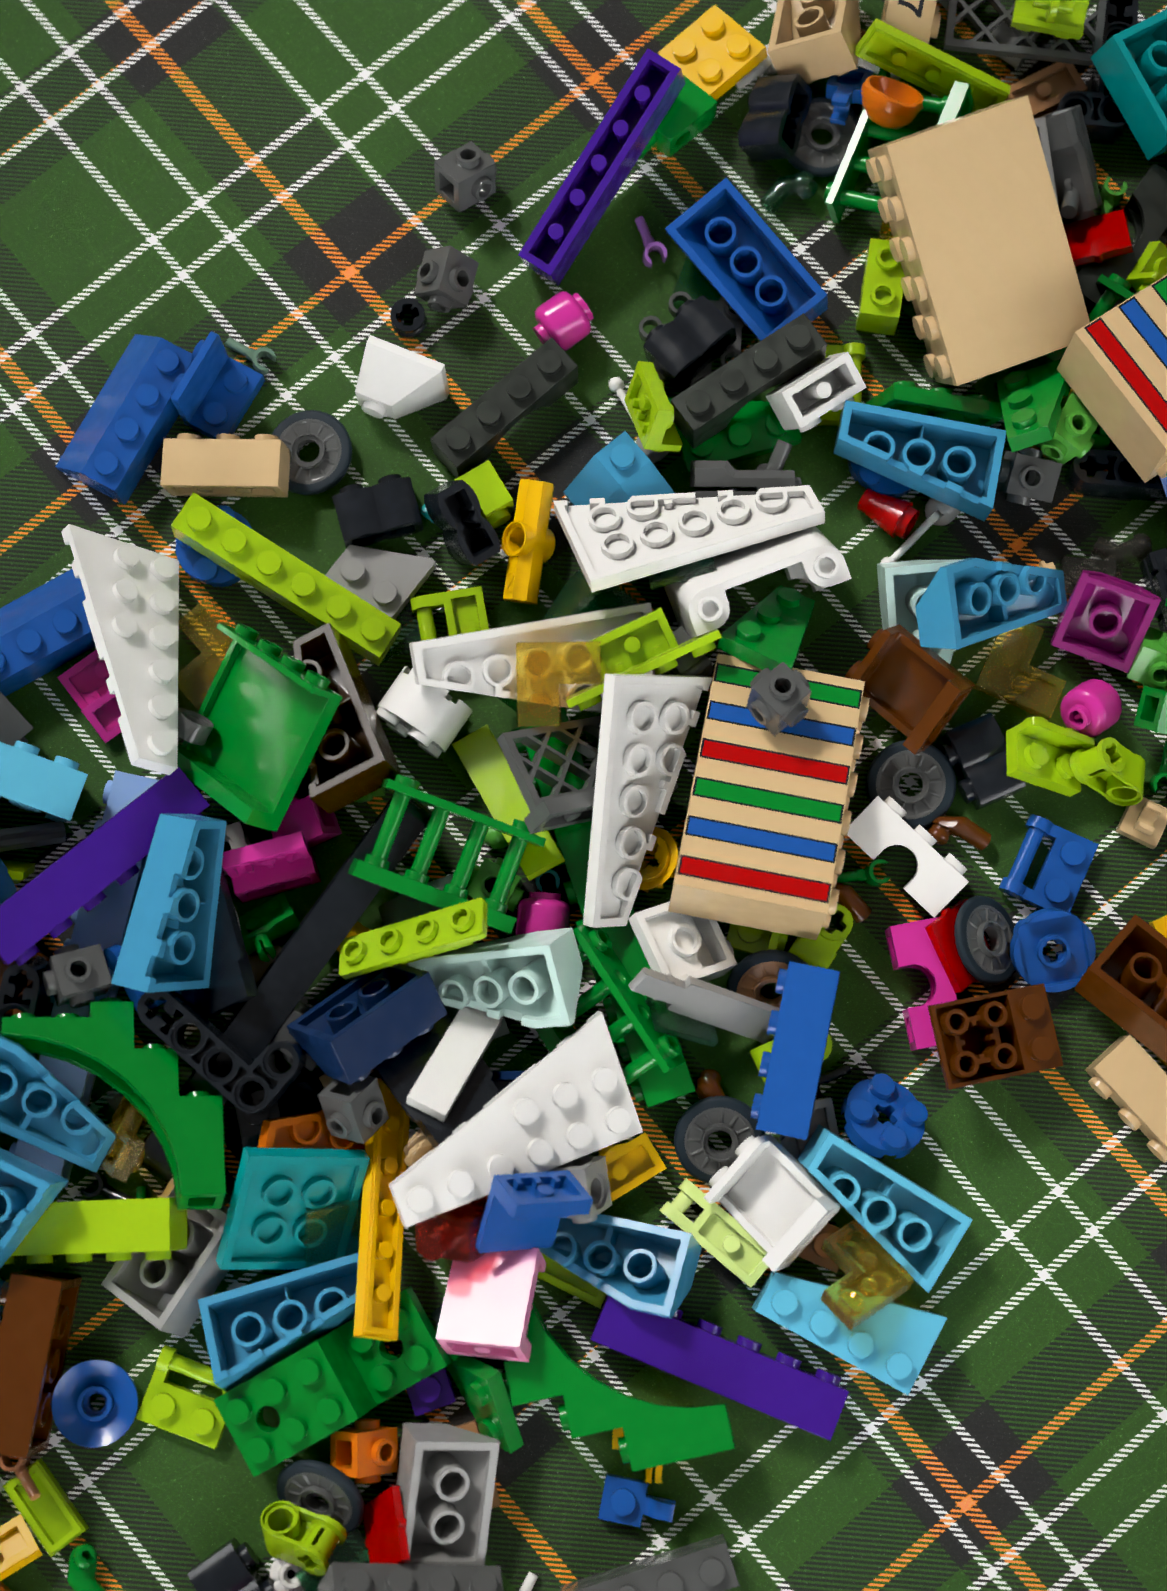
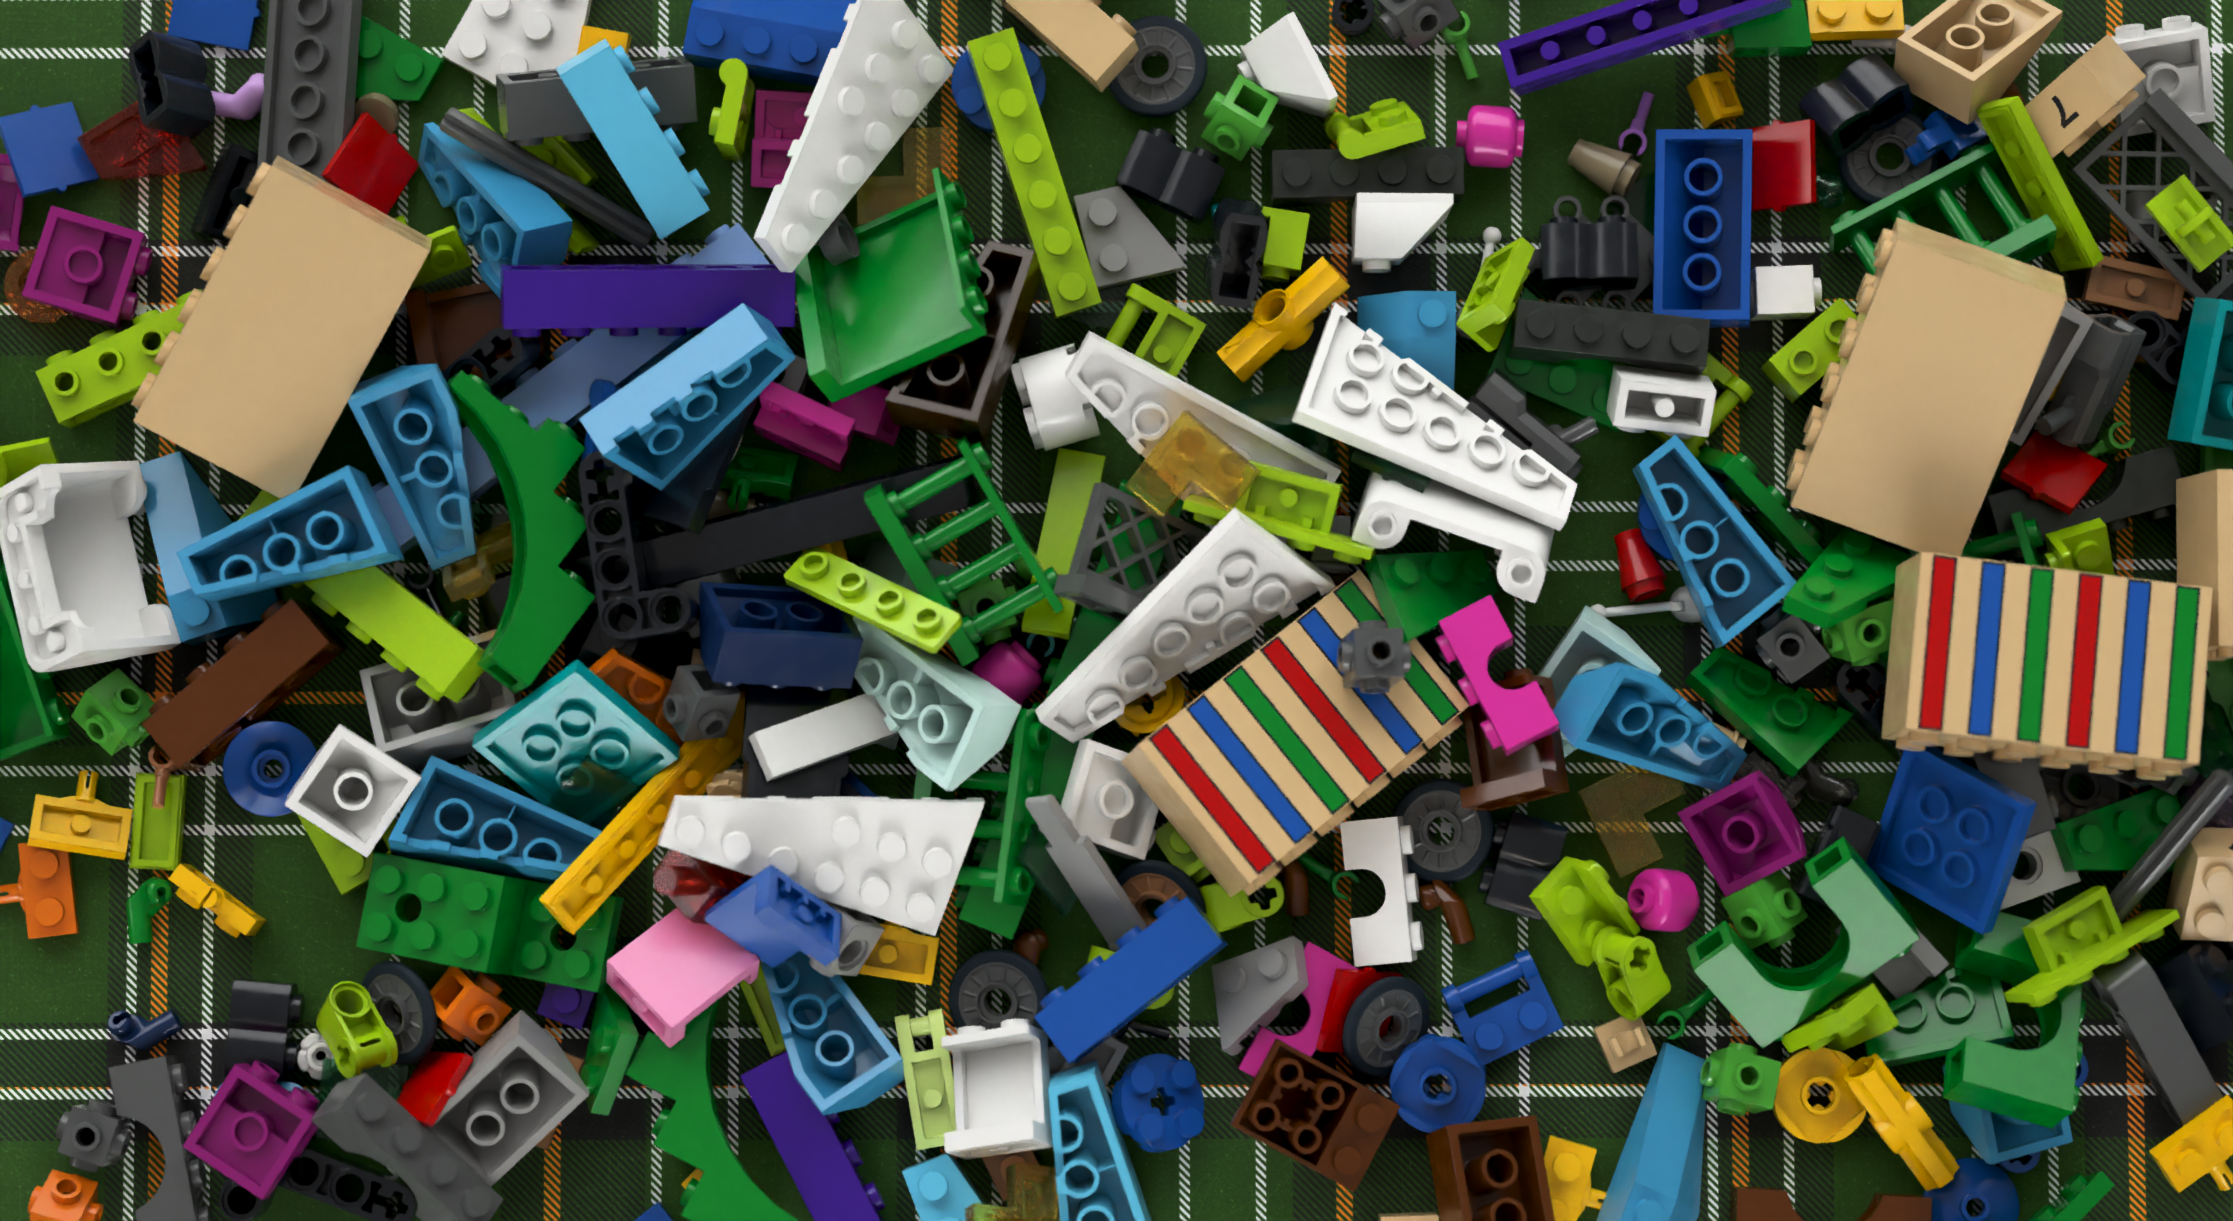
camera: 40 degrees right, 5 degrees up
(54, 706) = (732, 120): none -> lime plate
(76, 975) = (571, 383): dark grey brick -> none
(114, 1530) = (200, 890): none -> yellow plate
(162, 1370) = (352, 790): none -> white slope
(391, 437) = (1239, 118): none -> bright green brick
(488, 370) = (1380, 129): none -> lime plate
(490, 281) = (1461, 45): none -> bright green hand
(546, 424) = (1393, 226): none -> white slope
(651, 283) = (1605, 167): none -> dark tan cone
(682, 188) = (1714, 99): none -> yellow slope
(765, 187) = (1783, 165): none -> red piece
(834, 265) = (1783, 292): none -> white brick
(882, 986) = (1256, 987): none -> light grey wing
(890, 101) = (1970, 183): orange piece -> none
(896, 665) = (1512, 716): none -> dark pink arch
(1055, 535) = (1769, 714): none -> green wing

